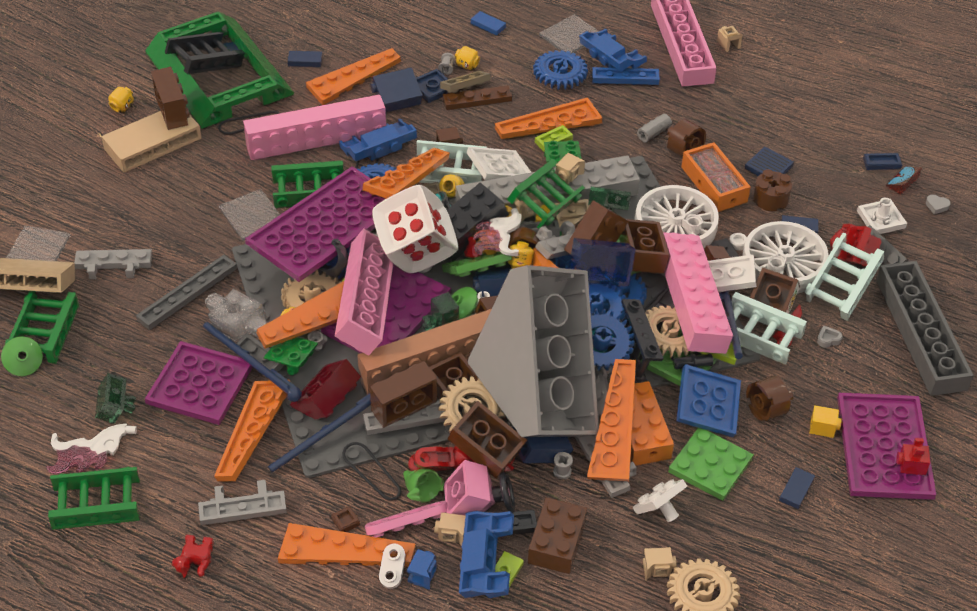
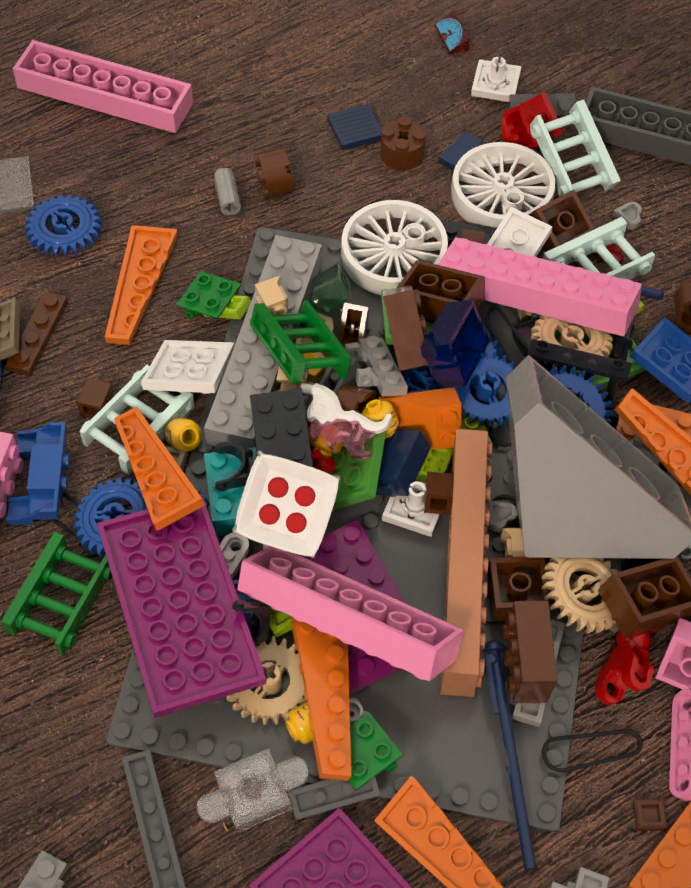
camera: 60 degrees left, 10 degrees up
(249, 213) = (58, 690): clear piece -> none
(293, 392) = (390, 793): dark blue bar -> none
(327, 389) = (445, 740): dark red slope -> none
(423, 484) = (645, 706): bright green hat -> none
(443, 311) = (414, 548): clear green brick -> none
(466, 300) = (408, 519): bright green dish -> none
(558, 134) = (171, 292): lime plate -> none
(609, 52) = (72, 164): blue bracket -> none
(627, 76) = (120, 172): blue plate -> none
(715, 176) = (349, 178): orange brick -> none
(729, 34) = (135, 50): tan window -> none
(737, 241) = (449, 212): white tile -> none
(882, 161) = (414, 36): dark blue tile -> none
(937, 204) = (503, 30): light grey tile -> none

